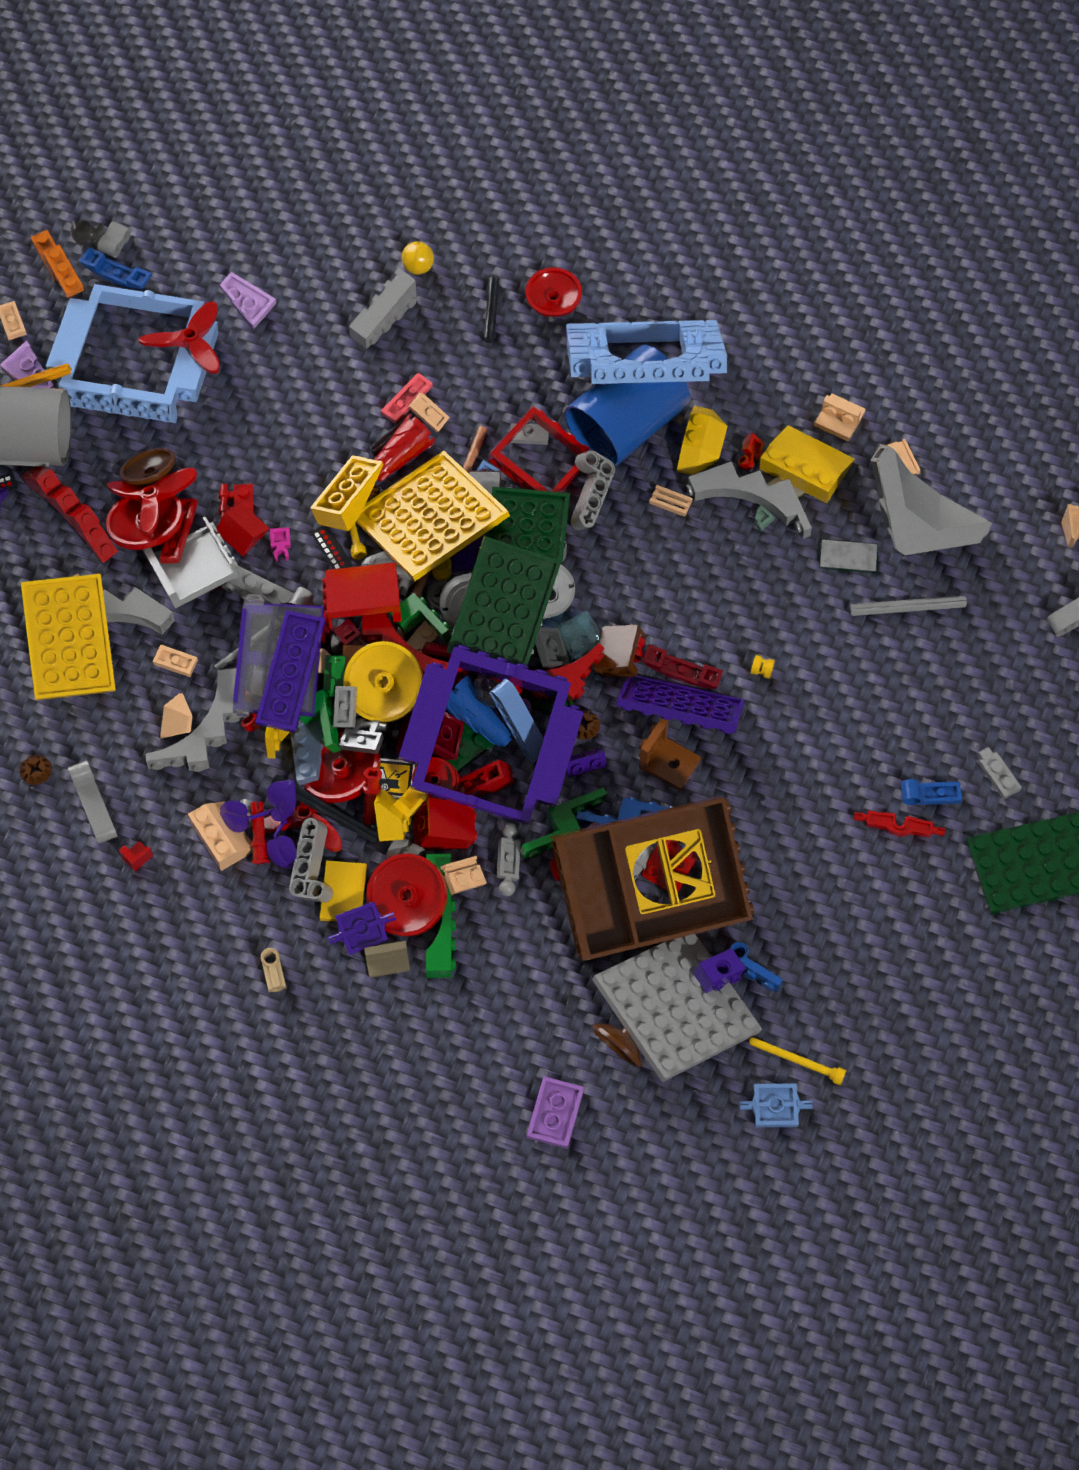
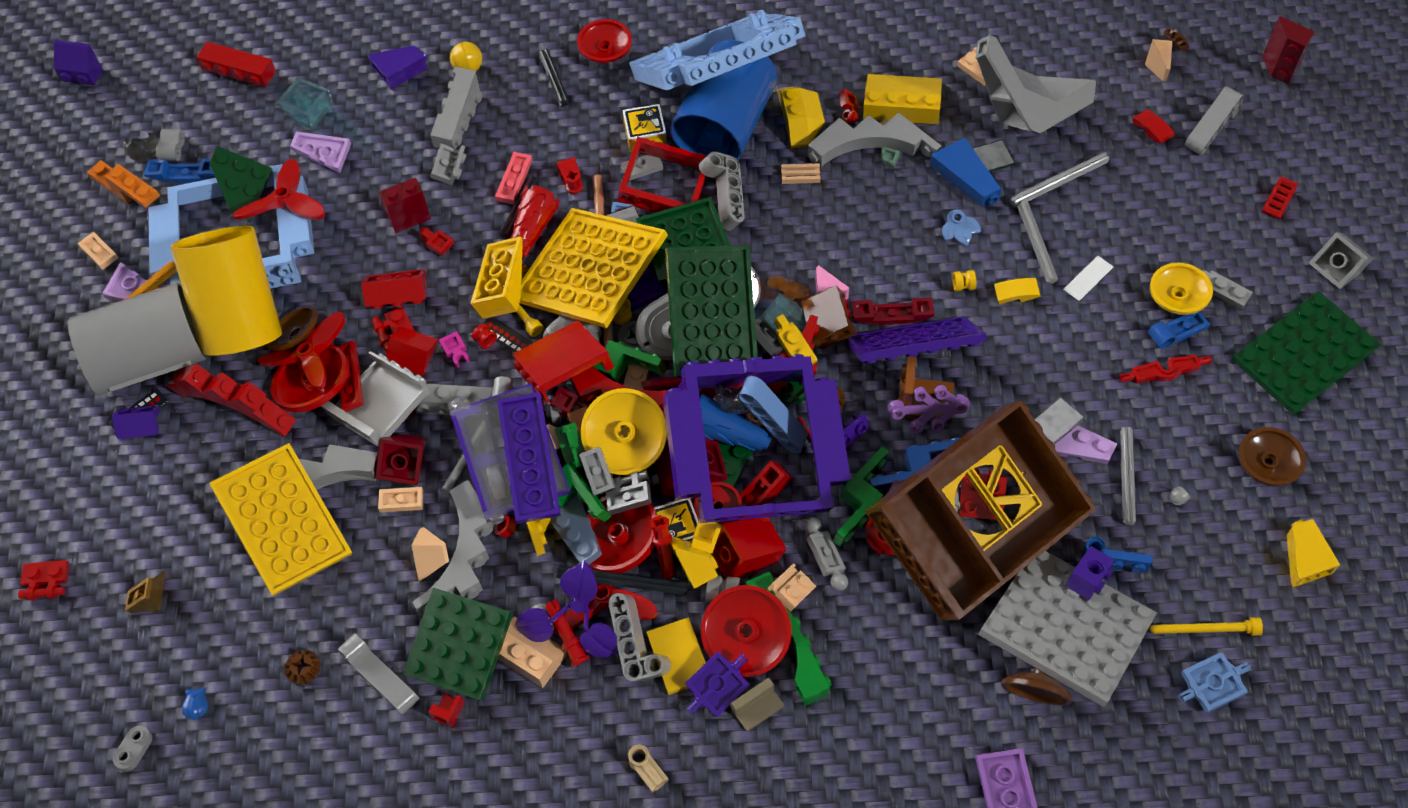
camera: 20 degrees left, 5 degrees down
(61, 121) = (76, 62): none -> dark purple slope
(103, 413) = (226, 290): none -> yellow piece
(159, 302) = (239, 178): none -> dark green plate
(166, 804) = (458, 644): none -> dark green plate
(190, 625) = (401, 458): none -> dark red slope
(205, 179) = (236, 64): none -> red brick
(251, 246) = (305, 102): none -> clear light blue slope
(253, 463) = (394, 288): none -> red slope
(295, 388) = (405, 205): none -> dark red slope
(309, 433) = (437, 241): none -> red plate
(310, 542) = (484, 336): none -> red wheel
(353, 239) = (398, 64): none -> dark purple slope
(353, 359) = (447, 164): none -> light grey bracket
(428, 412) = (538, 177): light nougat plate -> none
(459, 416) = (570, 175): none -> red piece
(550, 395) = (644, 123): none -> piece
(570, 662) = (792, 339): none -> yellow hinge
(599, 609) = (790, 288): none -> clear orange plate
(636, 616) = (825, 280): none -> bright pink slope
(685, 777) = (955, 405): none -> medium lavender plant
(763, 831) = (1059, 420): none -> flat silver piece
(781, 855) = (1086, 445): none -> lavender wing
(788, 616) = (962, 229): none -> medium blue plate
(806, 694) = (1022, 289): none -> yellow slope
(807, 903) = (1127, 476): none -> light grey axle
(823, 562) = (966, 171): none -> blue slope
(839, 417) = (909, 50): light nougat bracket -> none
(840, 940) = (1179, 496): none -> light grey hinge
(851, 657) = (1037, 242): none -> light grey axle
(880, 711) = (1088, 278): none -> white sticker
(923, 1037) = (1309, 553): none -> yellow slope
(944, 929) = (1278, 449): none -> reddish brown dish
(957, 747) = (1183, 281): none -> yellow dish
(1028, 589) = (1155, 127): none -> red slope

